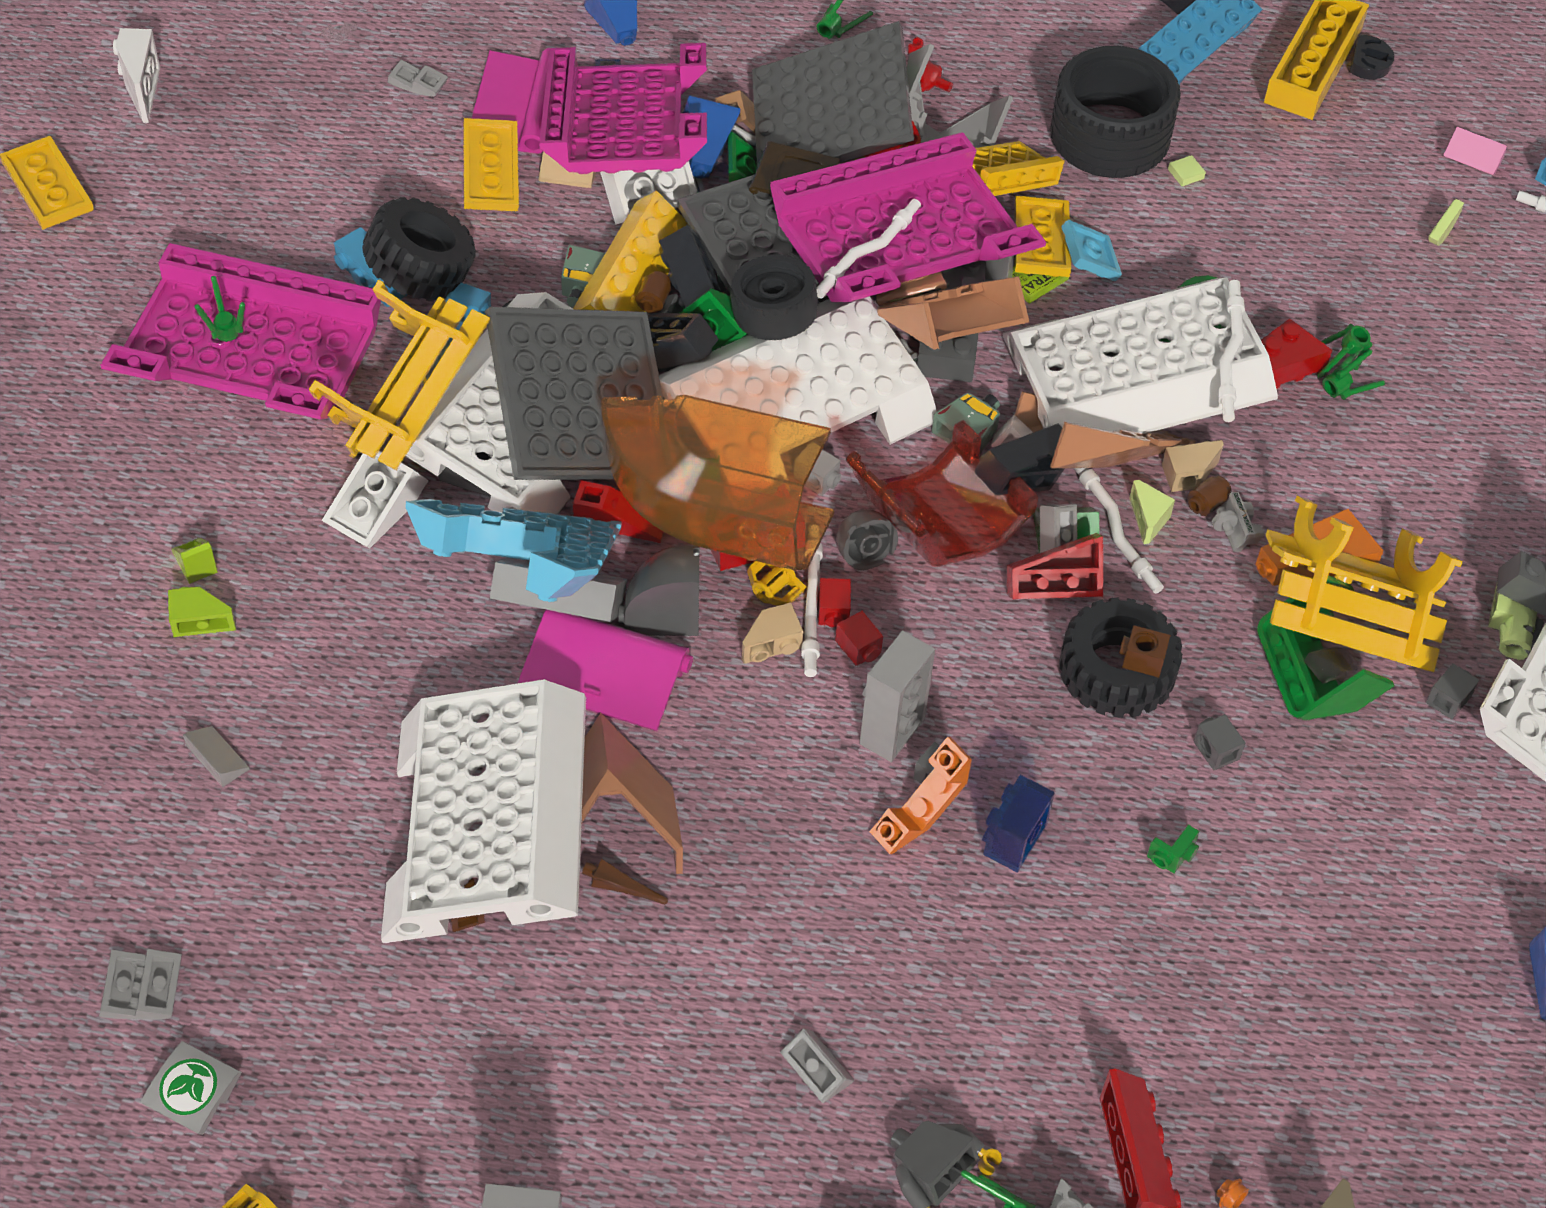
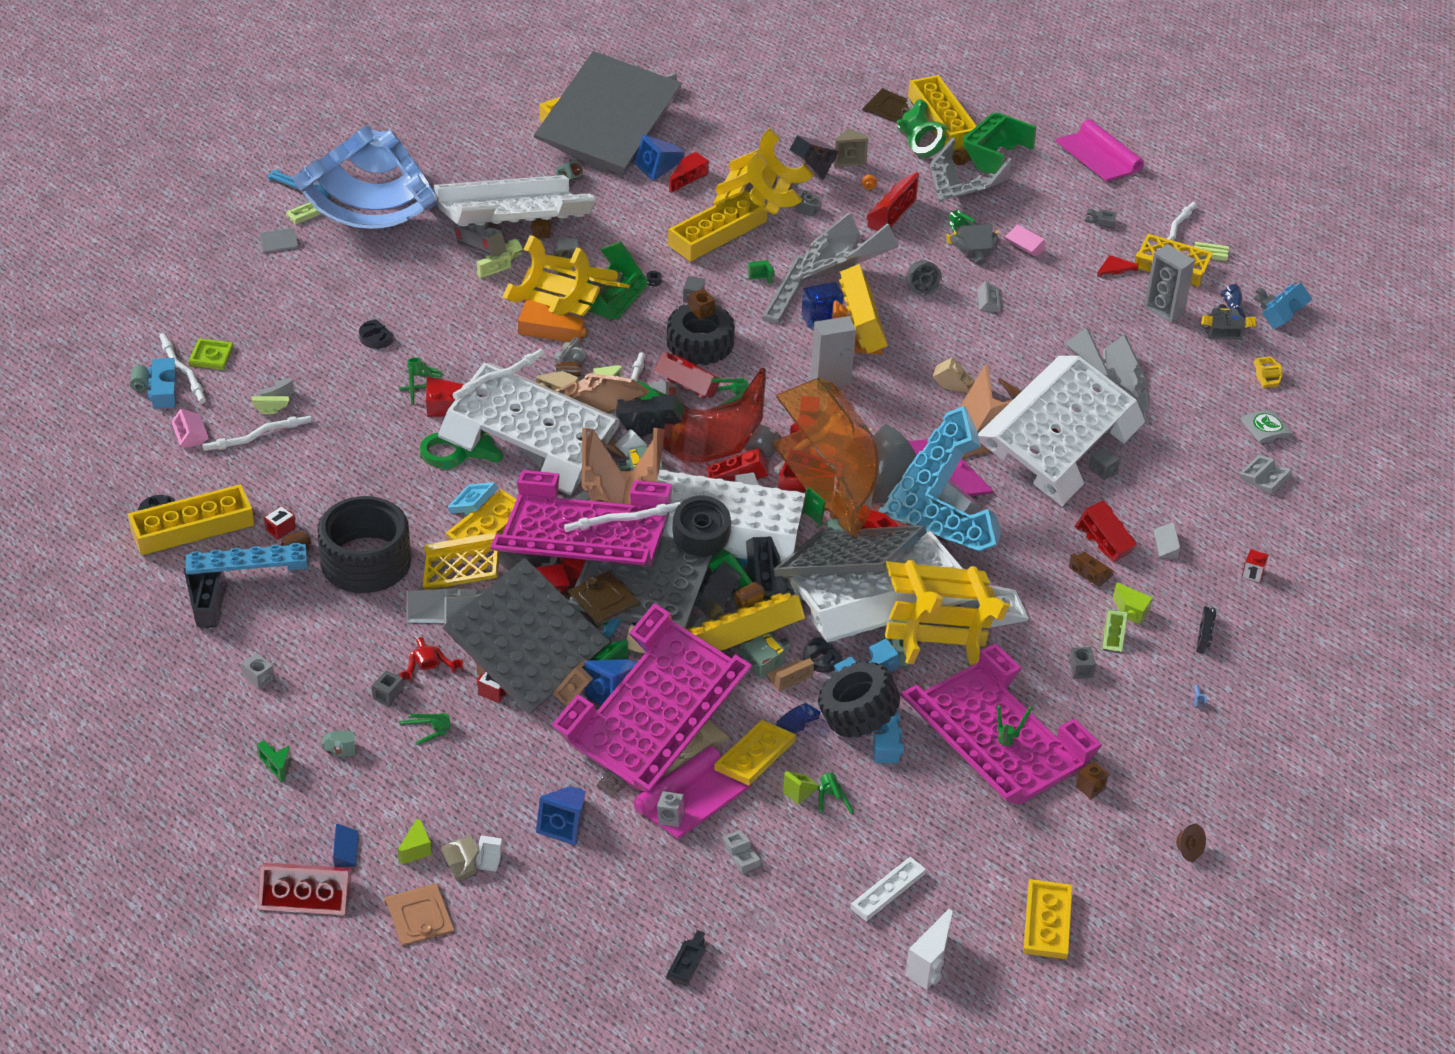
camera: 140 degrees left, 10 degrees down
(28, 539) = (1199, 697): none -> medium blue hand
(58, 780) = (1255, 565): none -> brick
(75, 640) = (1205, 629): none -> black hinge
(91, 343) = (1092, 780): none -> reddish brown brick
(206, 488) = (1082, 662): none -> dark grey brick
(236, 121) = (888, 889): none -> white plate
(292, 638) = (1090, 568): none -> reddish brown bracket
(306, 696) = (1106, 530): none -> red wedge
(383, 182) = (830, 786): none -> green plant
(388, 825) = (1104, 463): none -> dark grey brick
(415, 160) = (798, 786): none -> lime slope
(468, 998) = (1117, 364): none -> light grey windscreen
(483, 228) = (797, 718): none -> clear blue slope
(515, 54) = (670, 809): none -> light grey brick
(539, 274) = (791, 674): none -> medium nougat panel
(725, 837) = (952, 376): none -> tan slope
(846, 494) = (748, 462): none -> red slope
(916, 26) = (387, 688): none -> dark grey brick
(944, 1008) = (923, 274): none -> dark grey cylinder
(945, 833) = (862, 309): none -> yellow brick
(985, 620) = (738, 387): none -> green plant
(1106, 946) = (836, 246): none -> light grey windscreen
(1111, 856) = (784, 294): none -> light grey tile
(1195, 101) = (298, 537): none -> reddish brown brick
(1239, 110) = (280, 522): none -> red brick
(1276, 1059) = (809, 204): none -> dark grey brick
(1300, 726) = (654, 278): none -> black bush
(1324, 887) = (716, 226): none -> yellow brick
(1344, 1117) = (815, 154): none -> black wedge
(1394, 986) = (761, 170): none -> yellow piece
(1398, 227) = (291, 422): none -> white bar
(1461, 246) = (281, 388): none -> light grey slope
(1466, 402) = (382, 338): none -> black piece
(1501, 989) = (689, 169): none -> red slope

